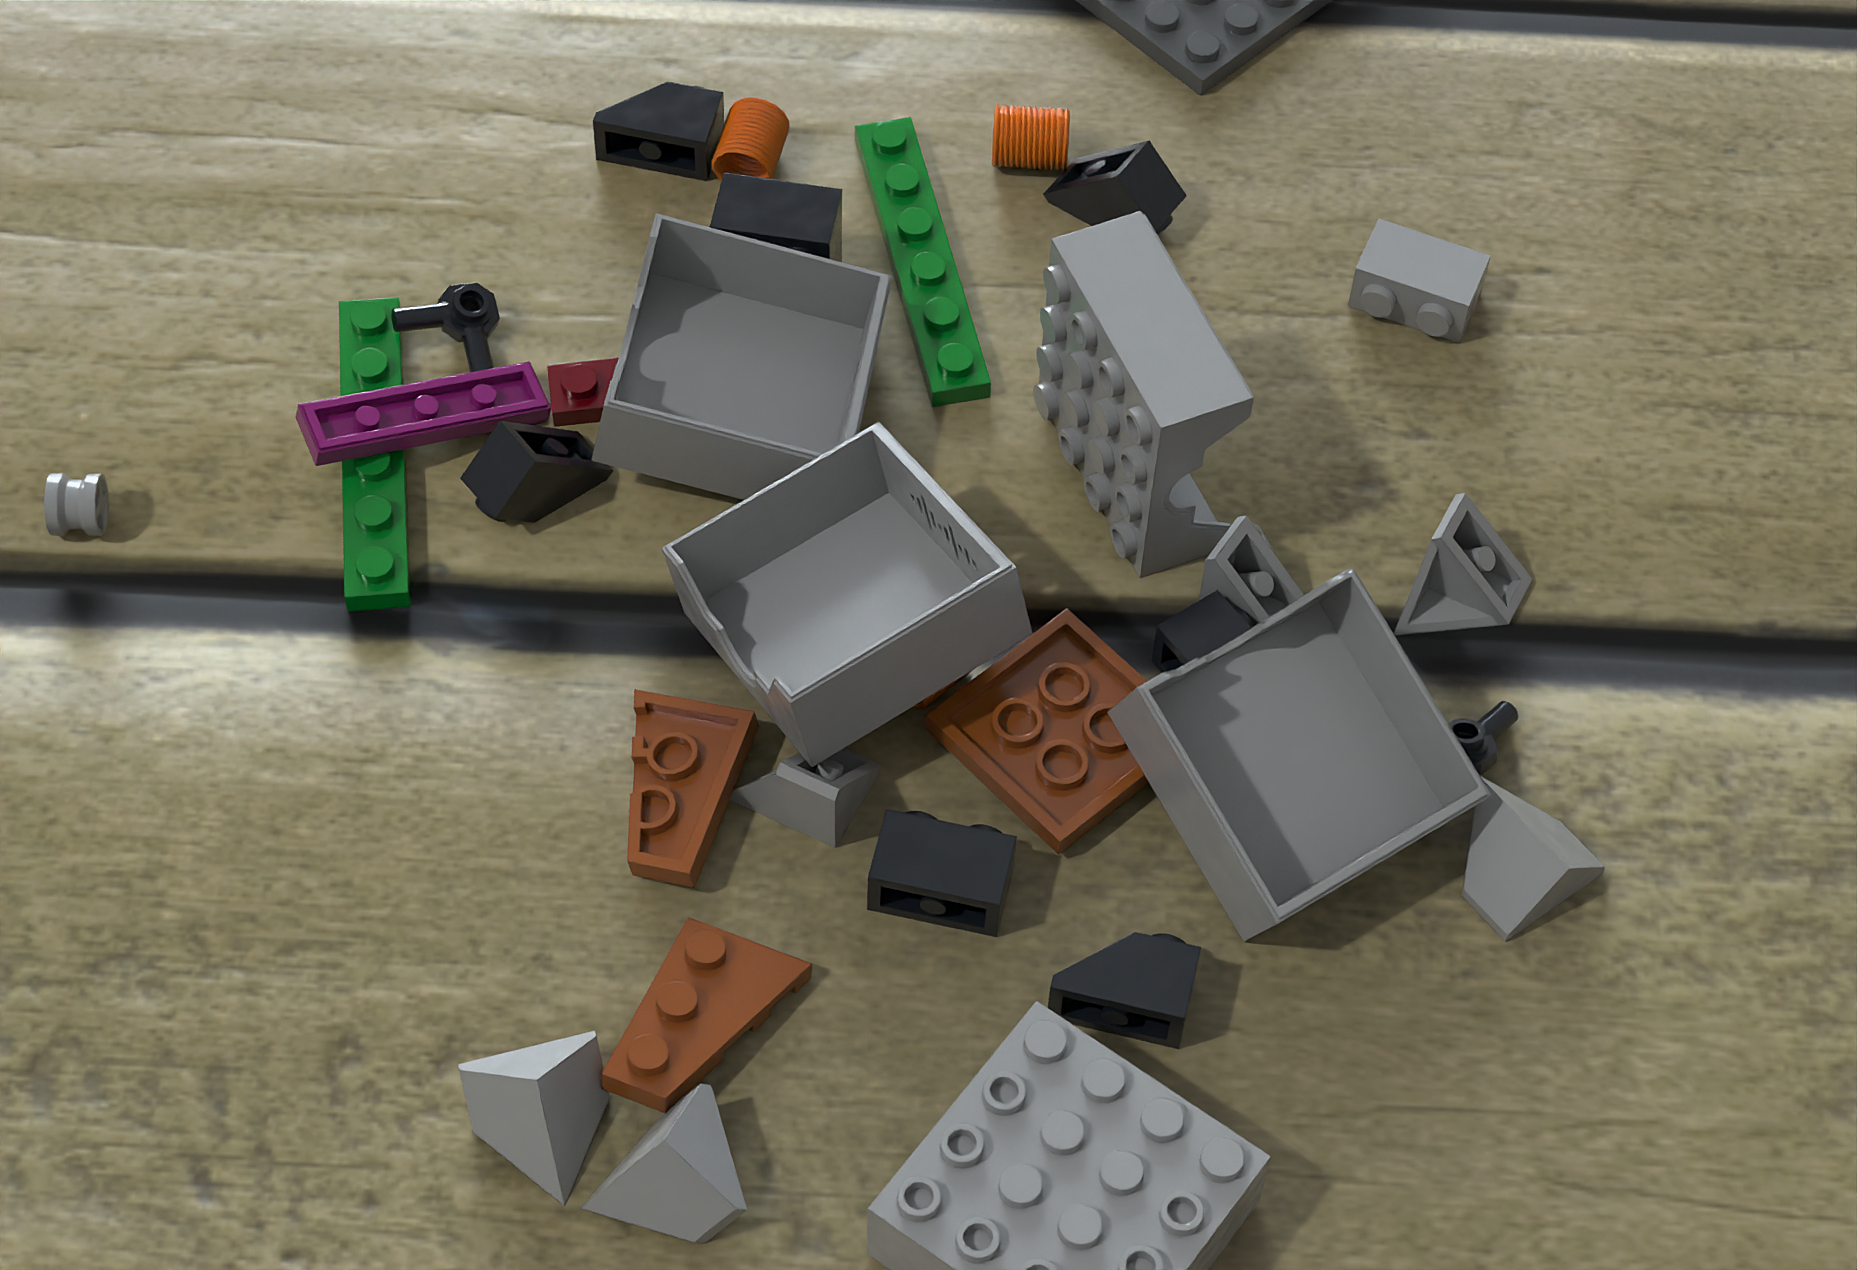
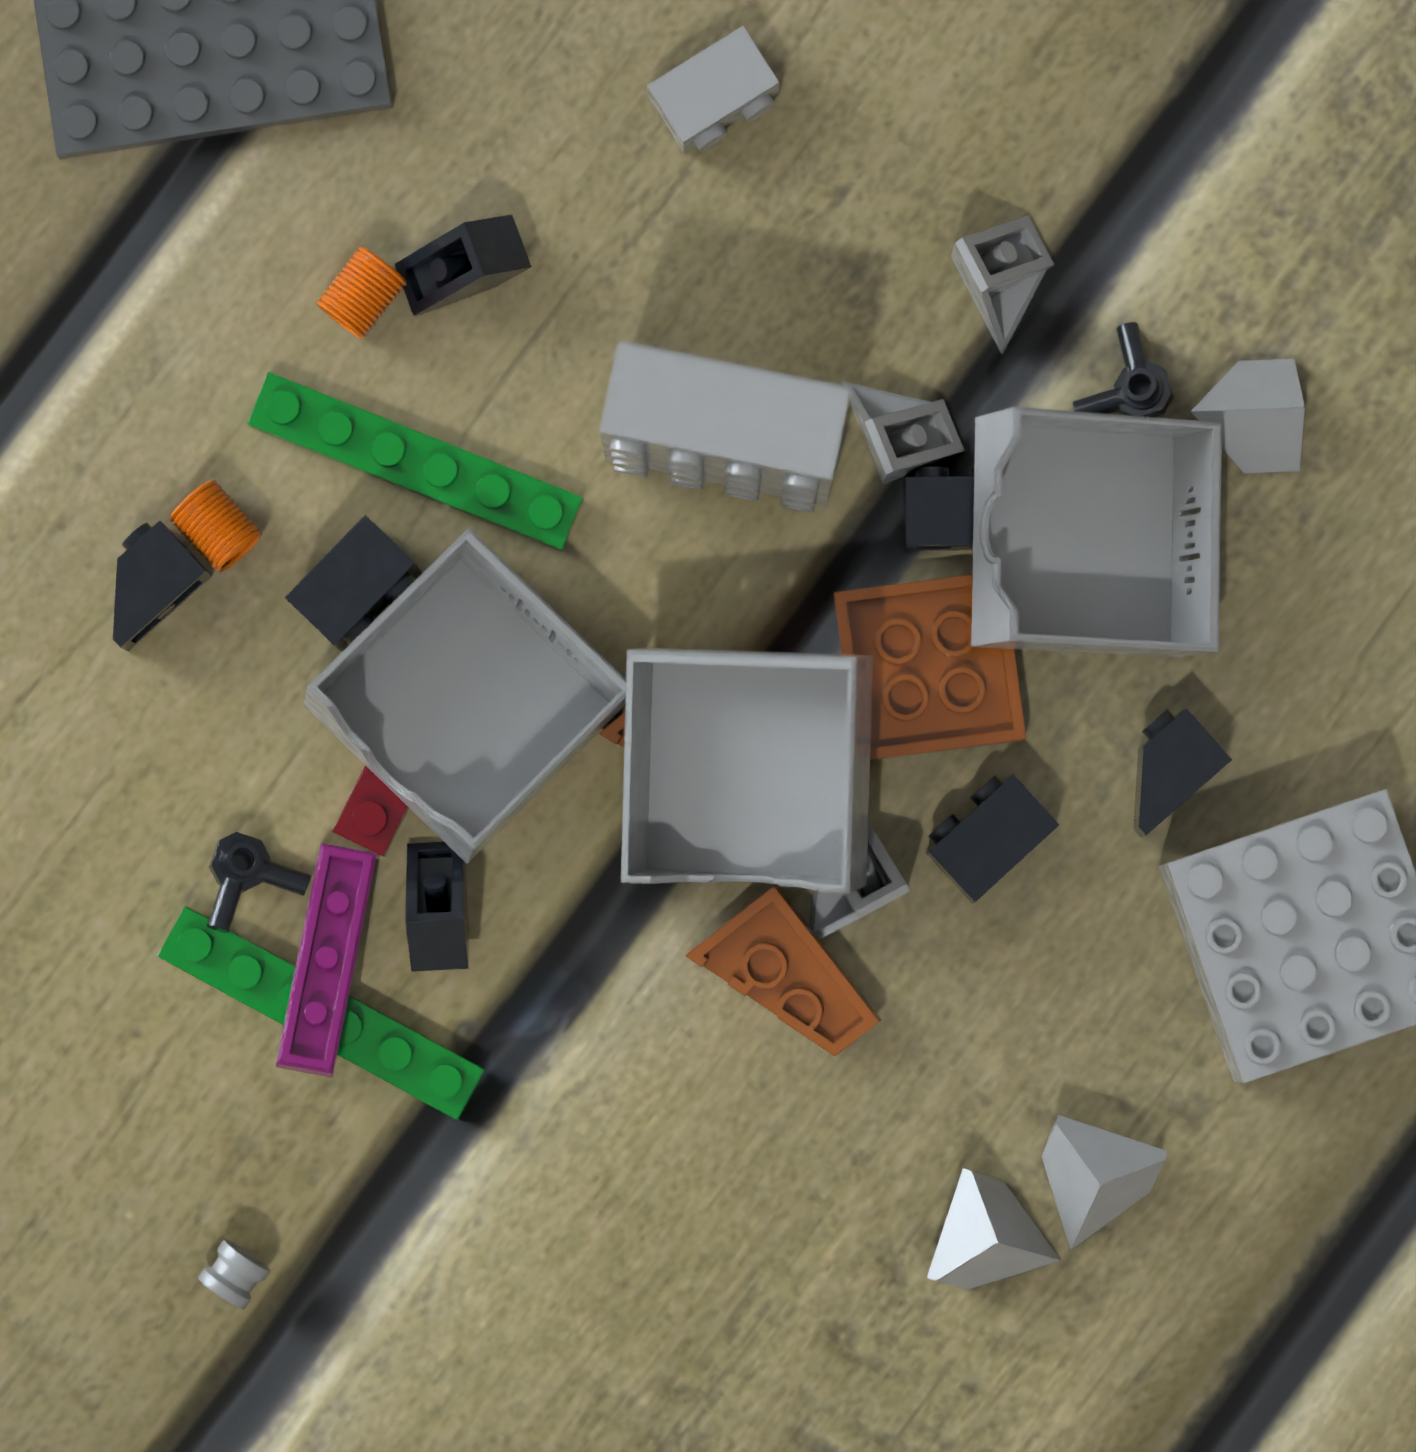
camera: 50 degrees left, 30 degrees up
(695, 1010) = (983, 1080): dark orange wing -> none

